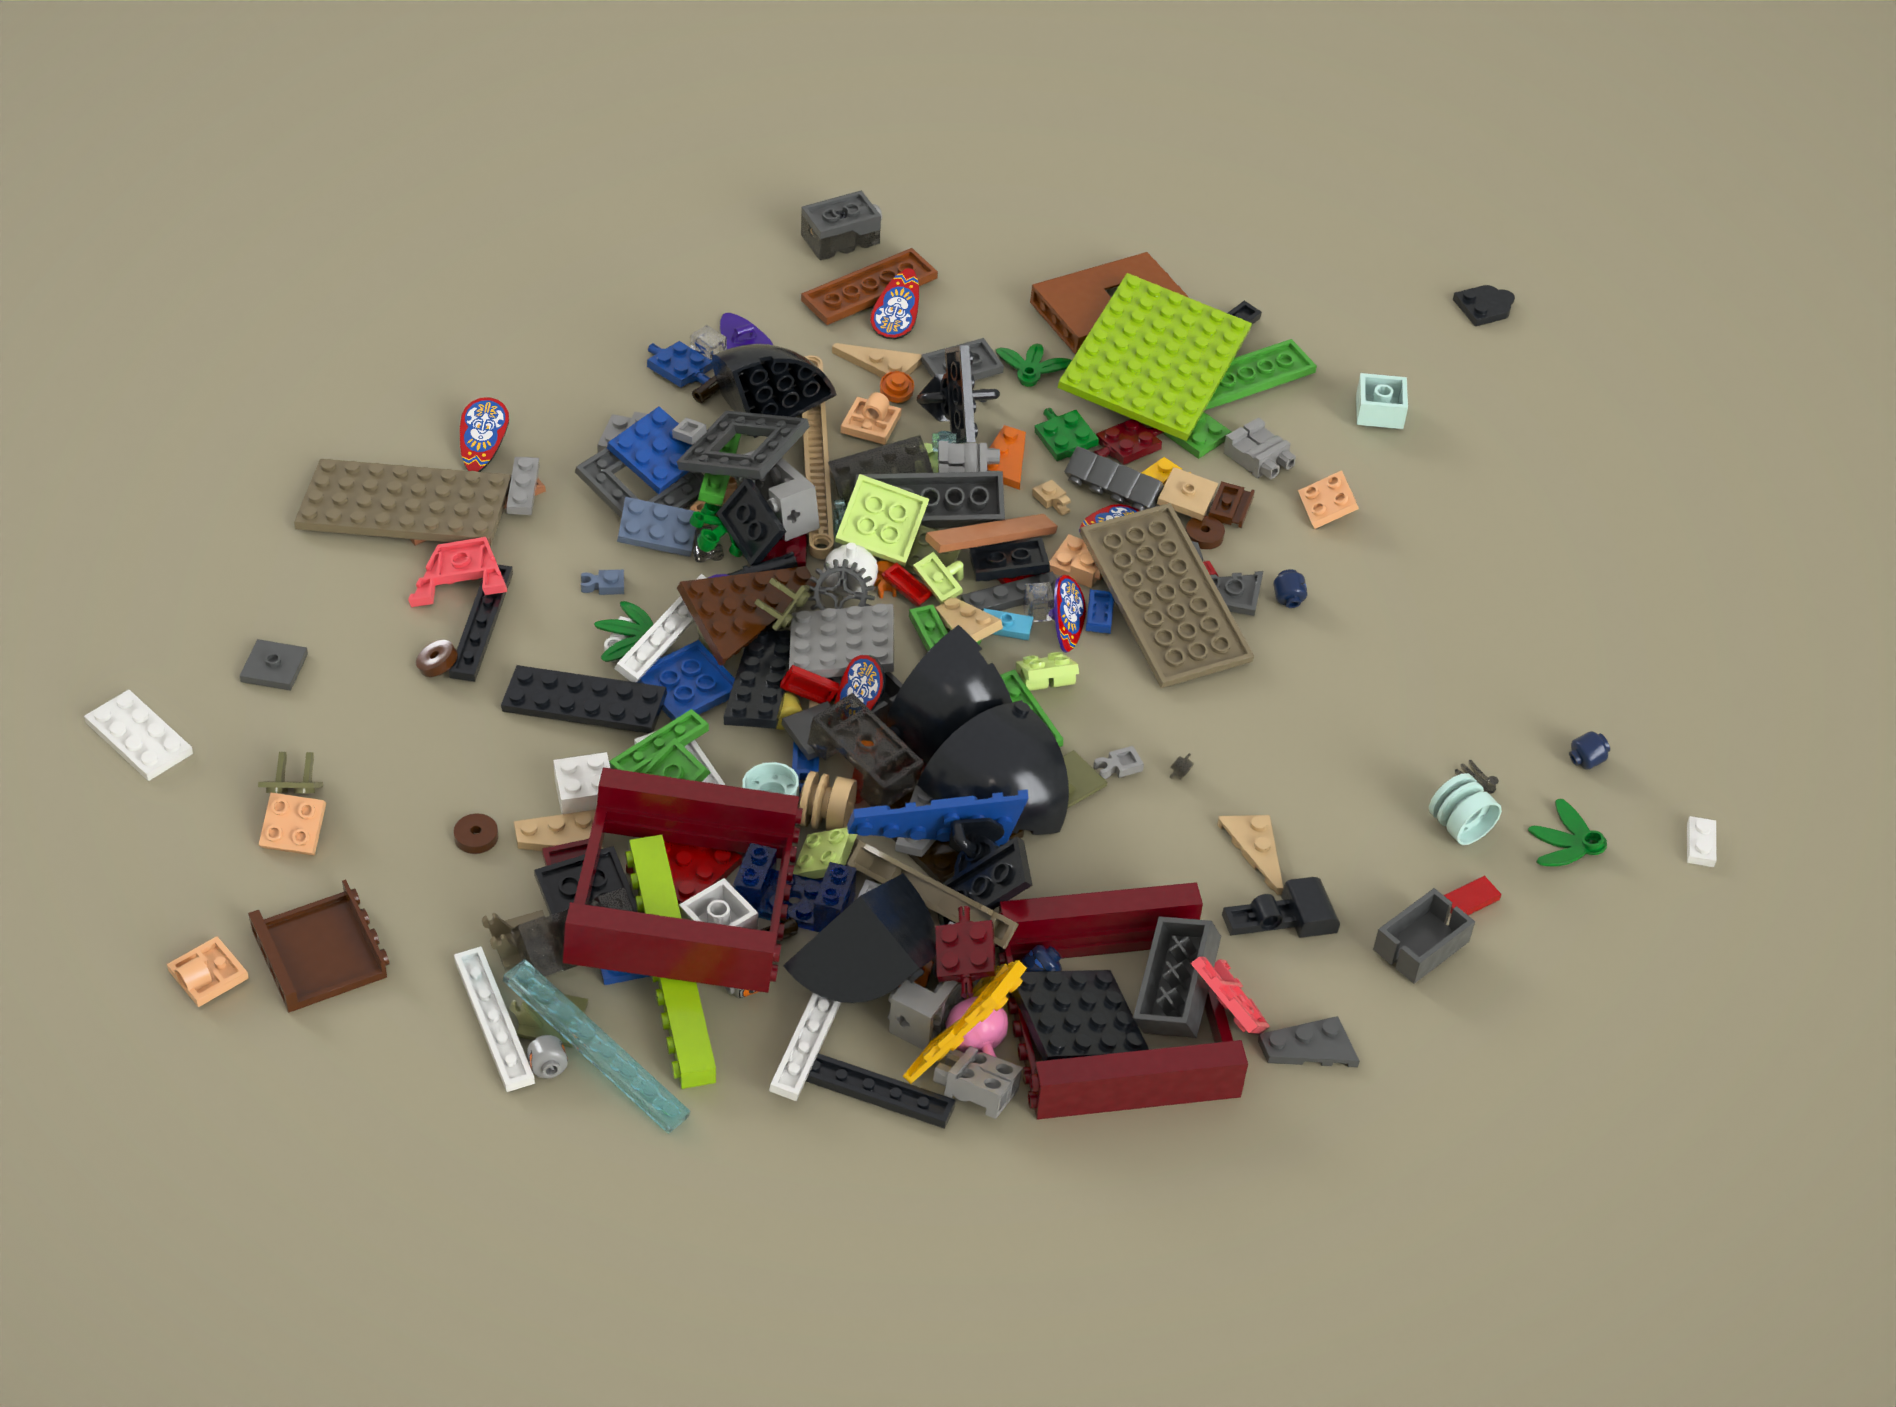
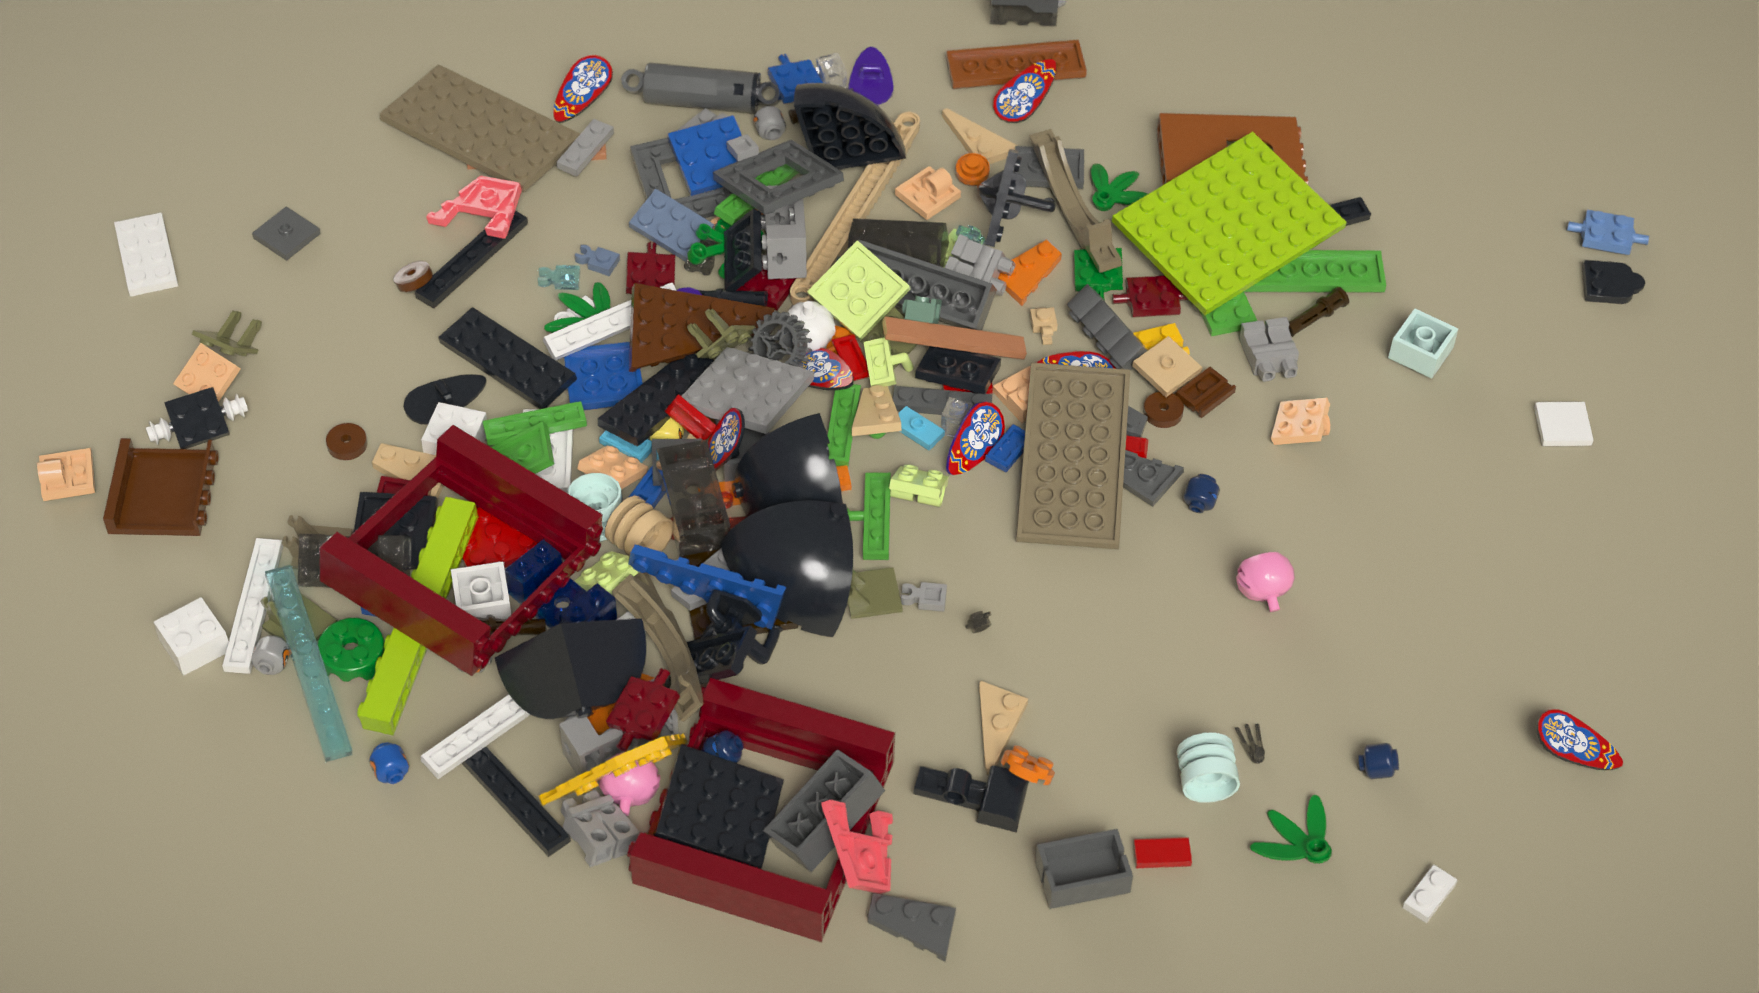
camera: 30 degrees right, 5 degrees up
(309, 867) = (196, 418): none -> black plate
(454, 1070) = (192, 636): none -> white brick
(533, 764) = (454, 390): none -> black shield
(584, 607) = (564, 277): none -> clear light blue plate
(599, 395) = (701, 87): none -> dark grey piece
(630, 1032) = (354, 662): none -> green plate
(661, 575) = (649, 268): none -> dark red plate
(682, 405) = (769, 123): none -> light grey head
(735, 1107) = (389, 763): none -> blue head
(748, 754) = (615, 464): none -> light nougat plate
(752, 736) = (640, 452): none -> medium azure plate
(905, 600) = (829, 370): none -> shield
(950, 517) = (922, 310): none -> sand green brick
(1040, 405) = (1089, 232): none -> dark tan slope
(1277, 401) = (1324, 307): none -> dark brown pin
(1322, 870) = (1028, 766): none -> orange plate
(1397, 636) = (1265, 578): none -> bright pink piece
(1455, 265) = (1608, 232): none -> medium blue plate
(1531, 428) = (1563, 424): none -> white tile
(1727, 673) = (1576, 741): none -> shield

